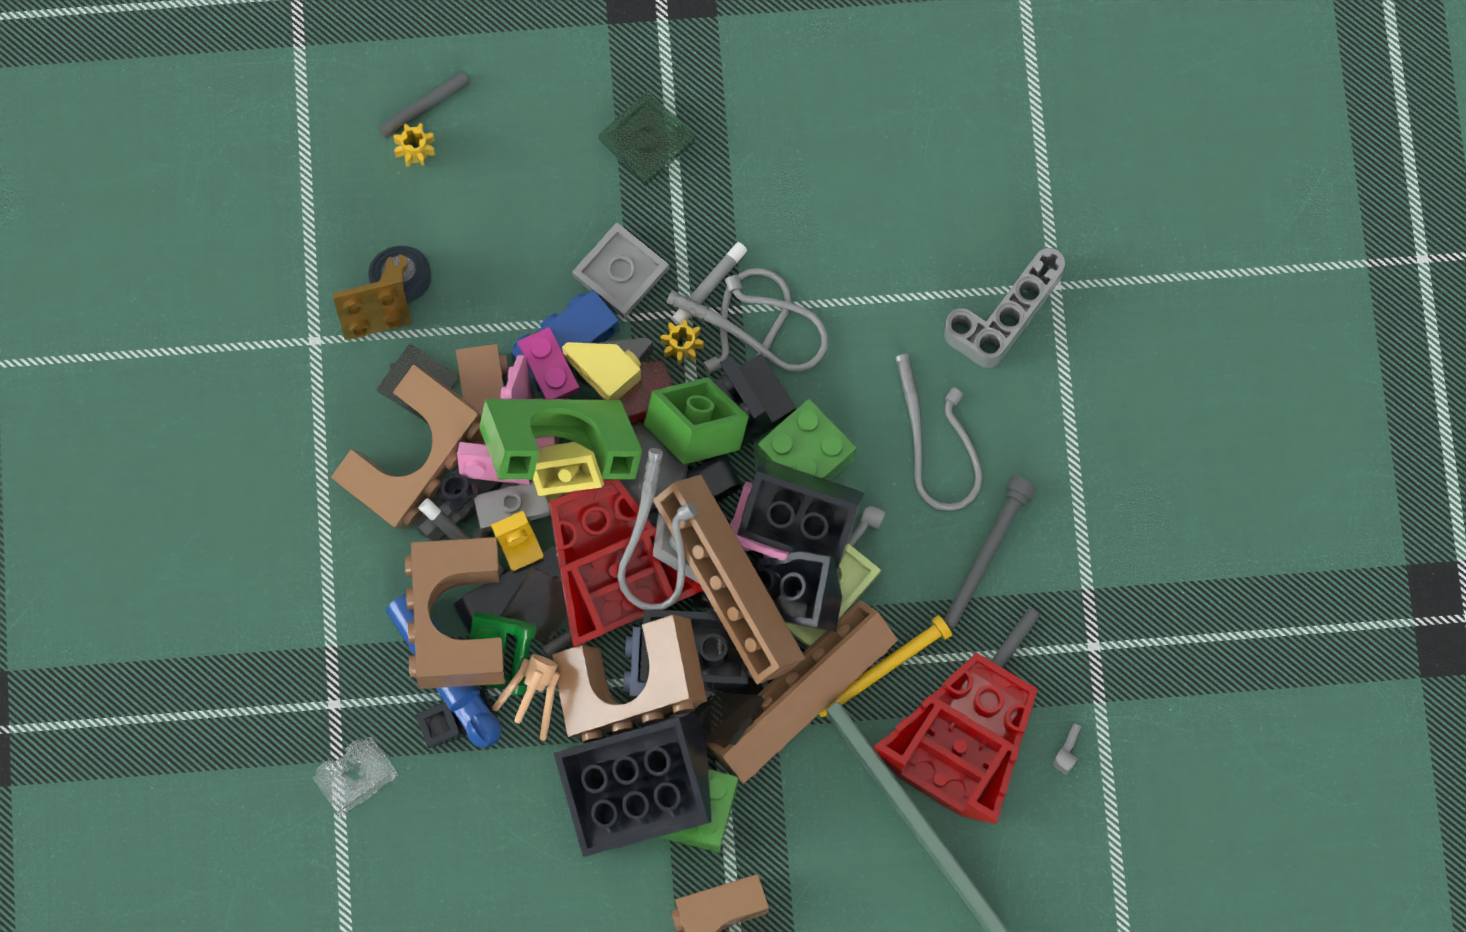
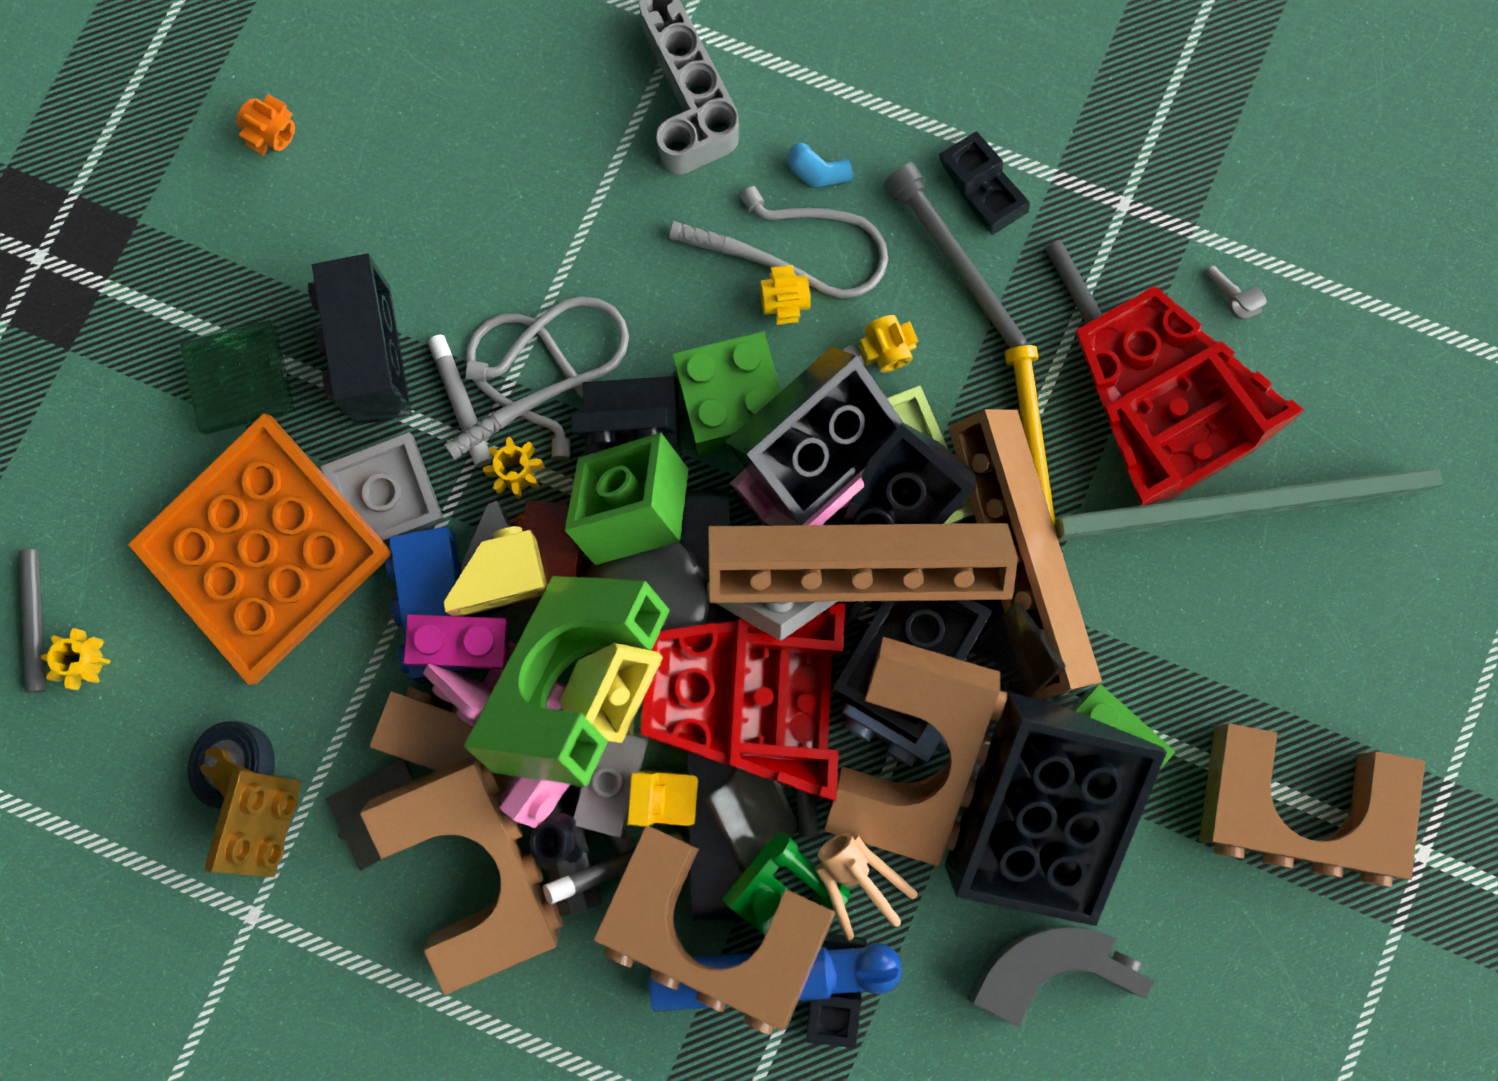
camera: 60 degrees left, 5 degrees up
(535, 824) = (1031, 958): none -> dark grey arch
(543, 215) = (260, 549): none -> orange plate
(683, 513) = (759, 571): light grey piece -> none
(710, 201) = (359, 340): none -> black brick
(824, 59) = (265, 124): none -> orange gear
(894, 451) = (784, 294): none -> yellow gear
(898, 534) = (888, 343): none -> yellow gear
(996, 427) = (815, 170): none -> dark azure arm
(1052, 543) = (983, 184): none -> black slope

